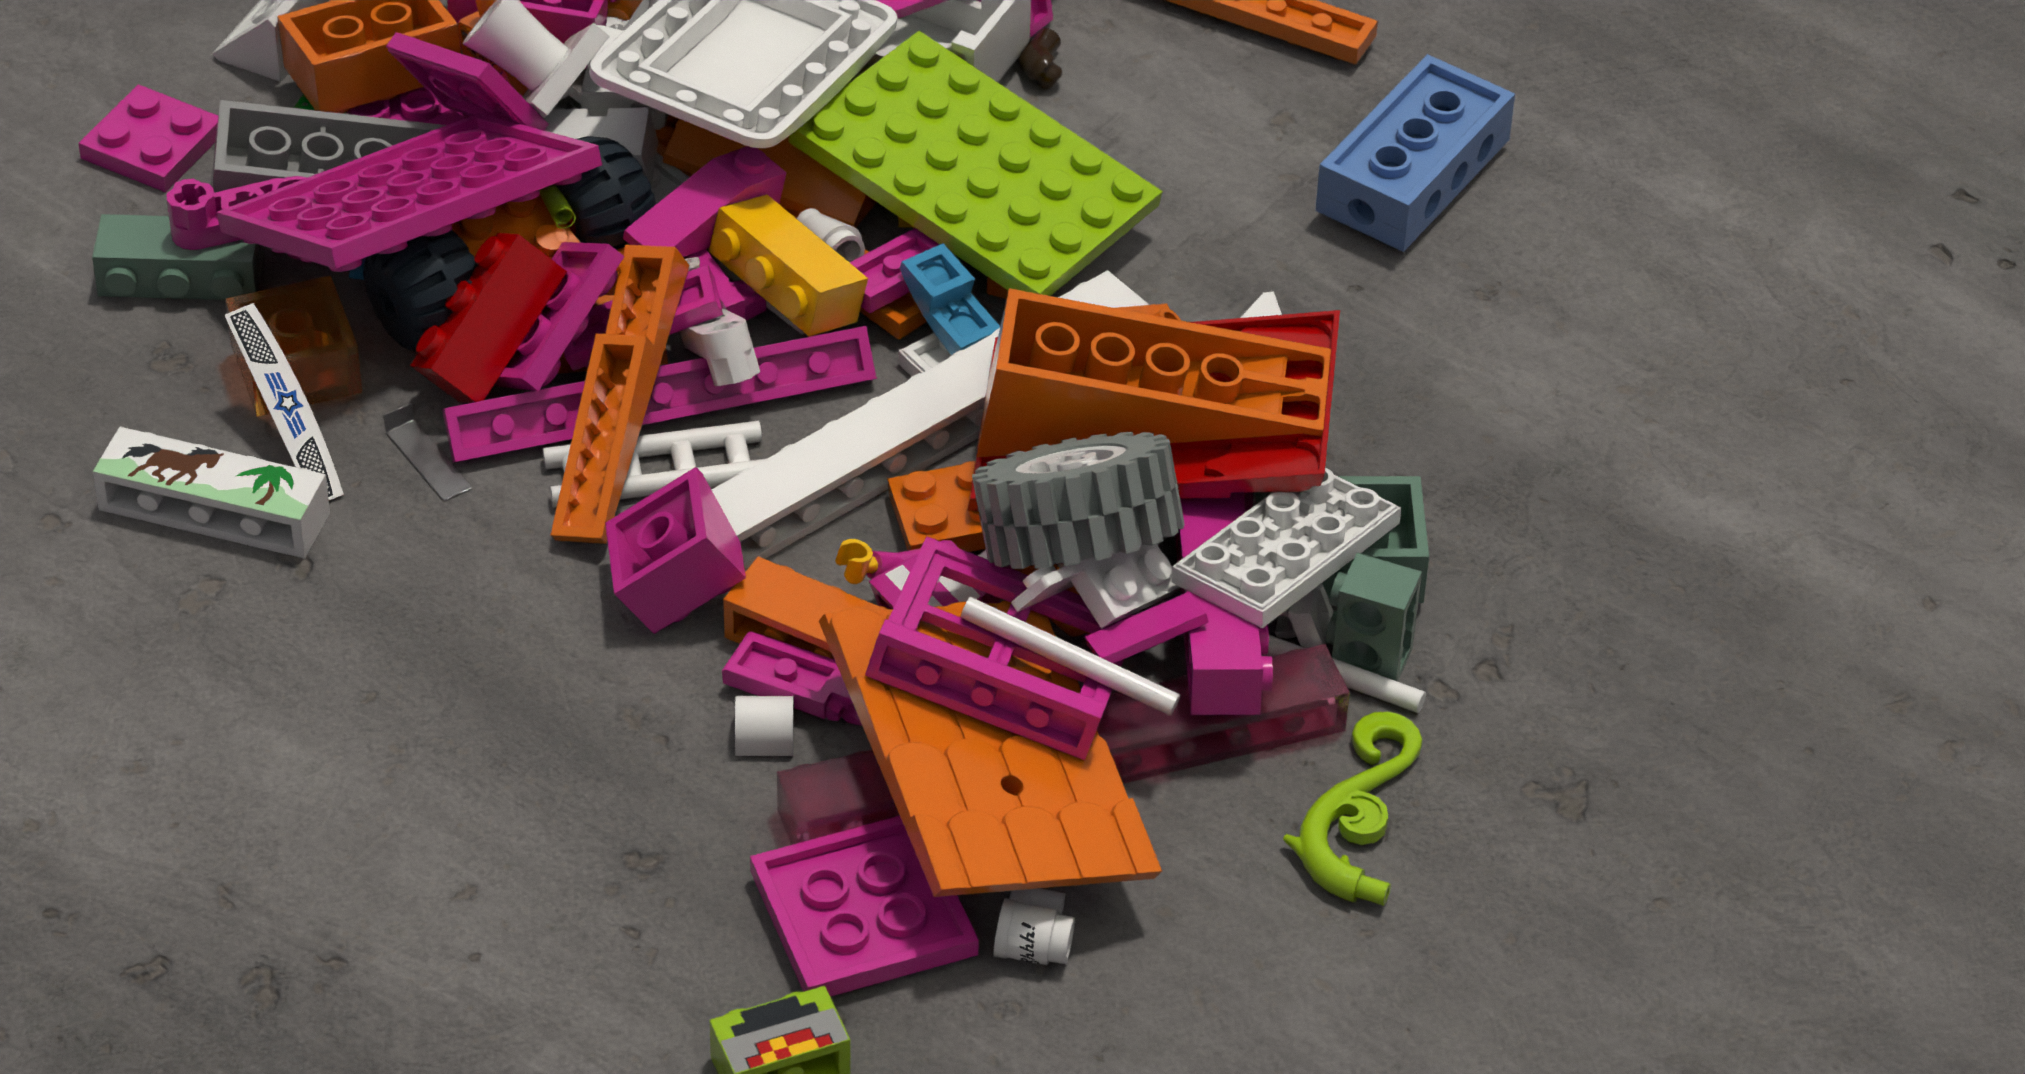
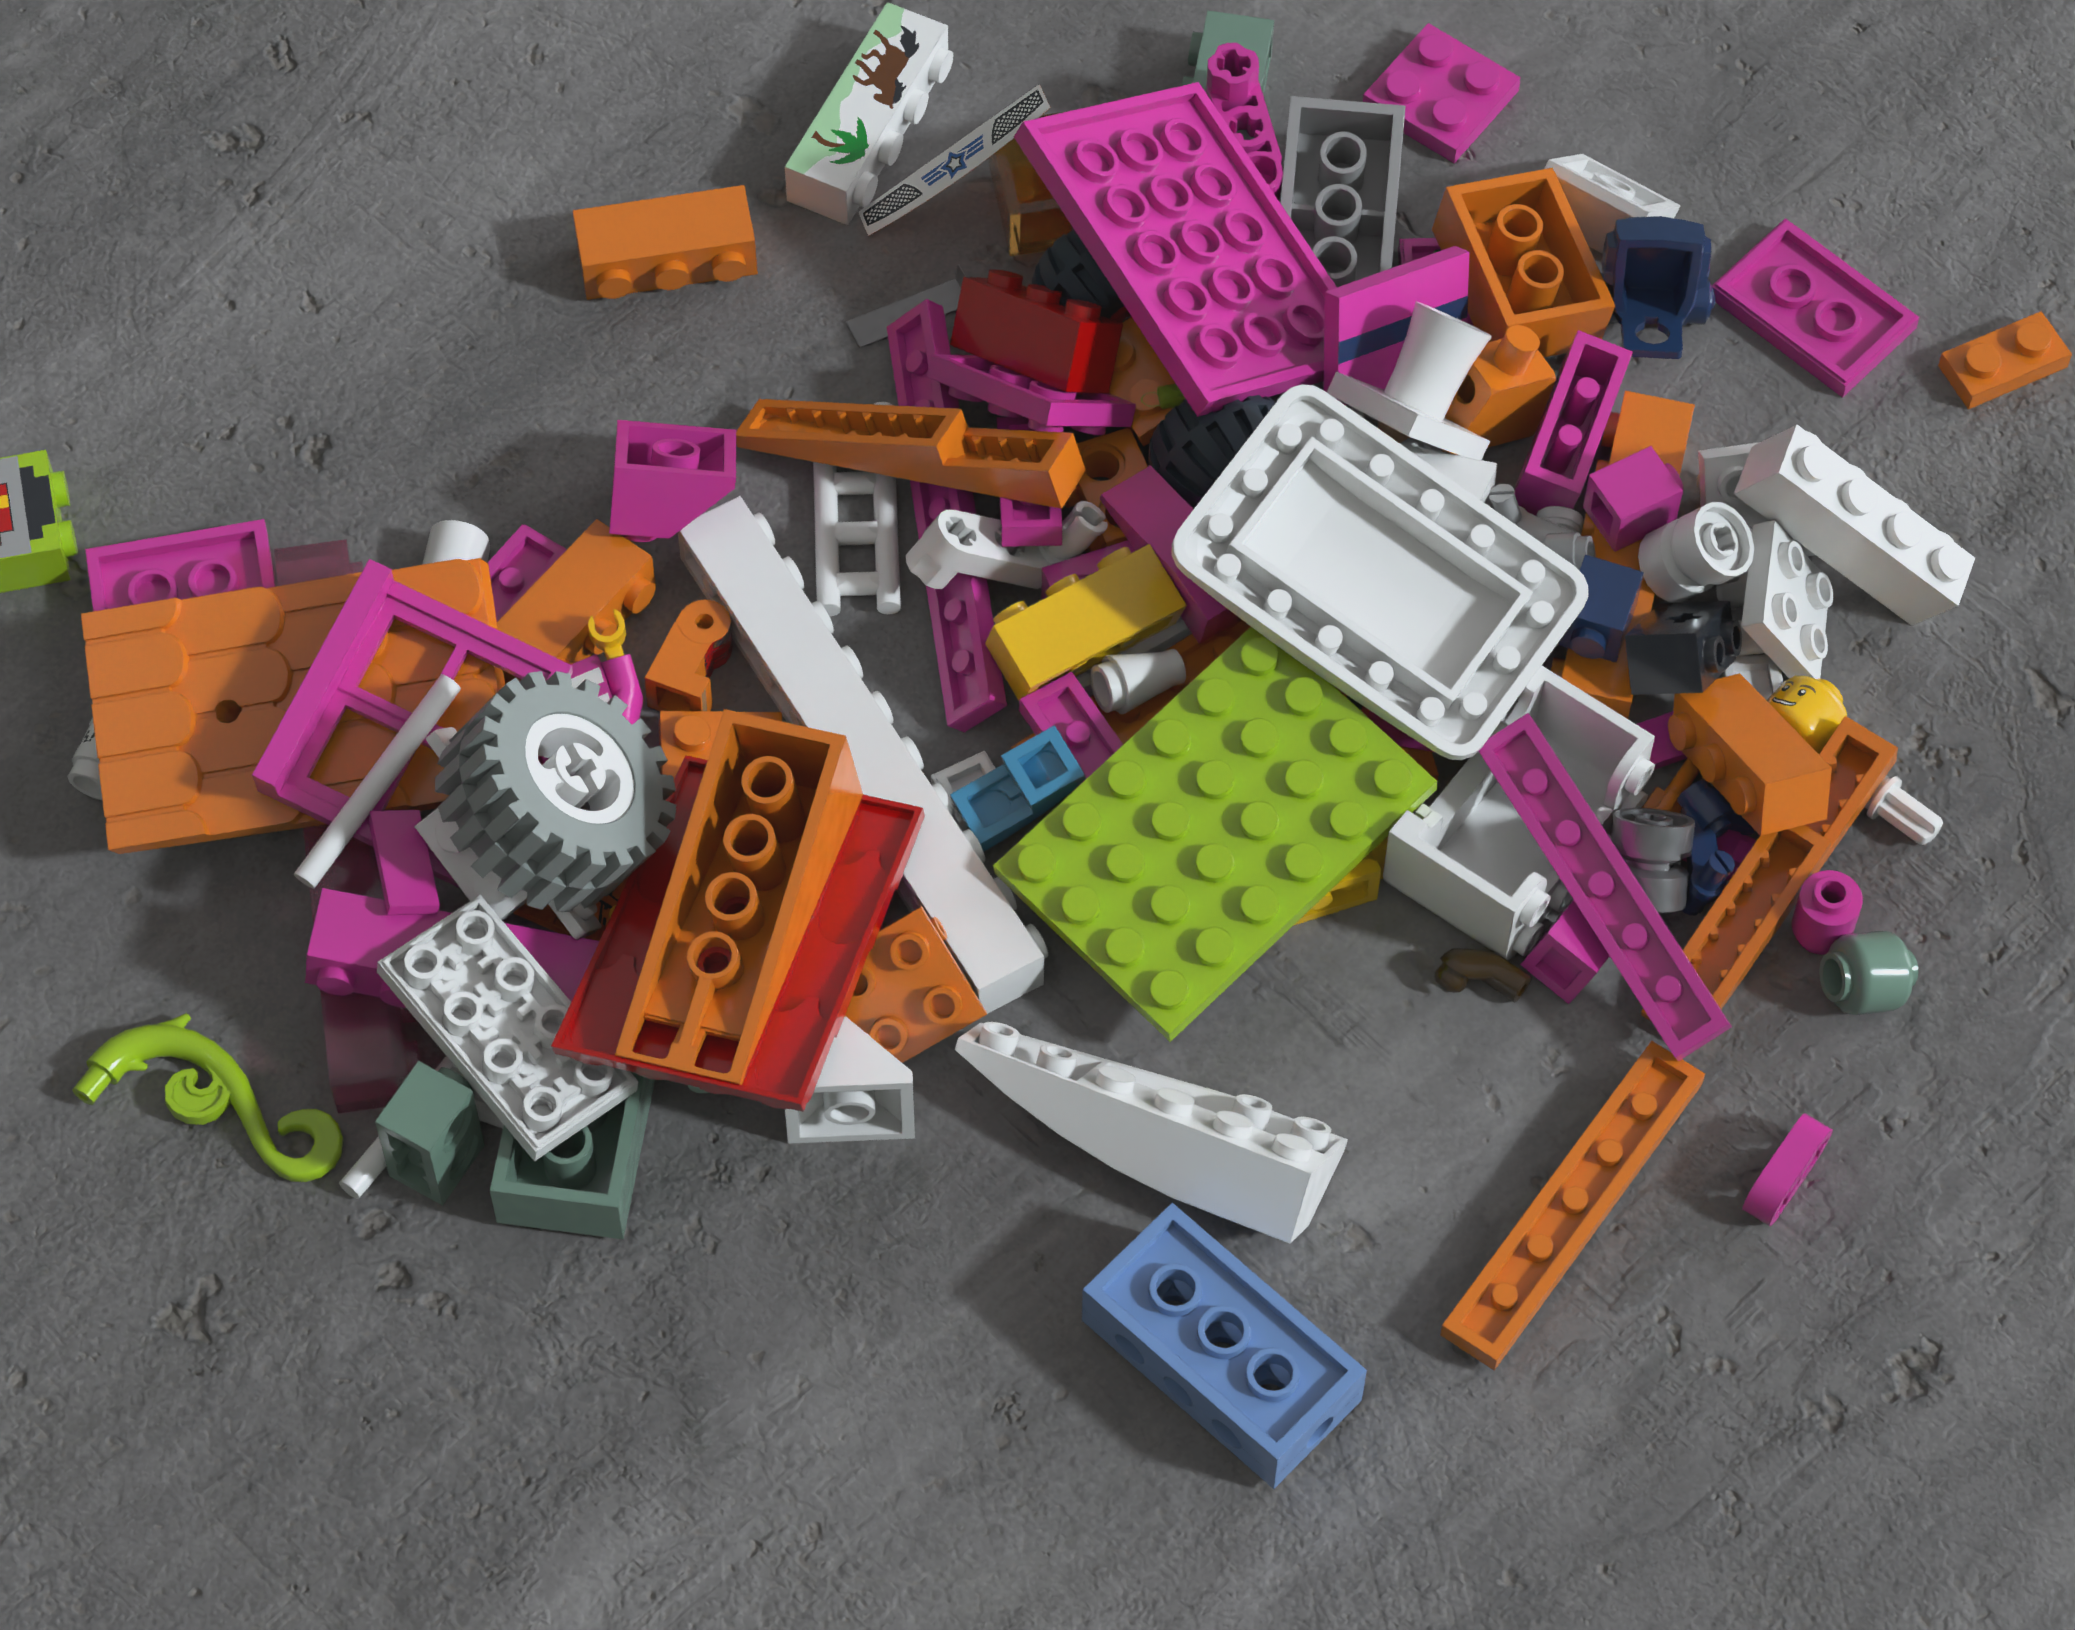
camera: 100 degrees right, 15 degrees up
(384, 615) = (665, 242): none -> orange brick
(821, 530) = (688, 657): none -> orange leg
(1237, 194) = (1168, 1133): none -> white wedge

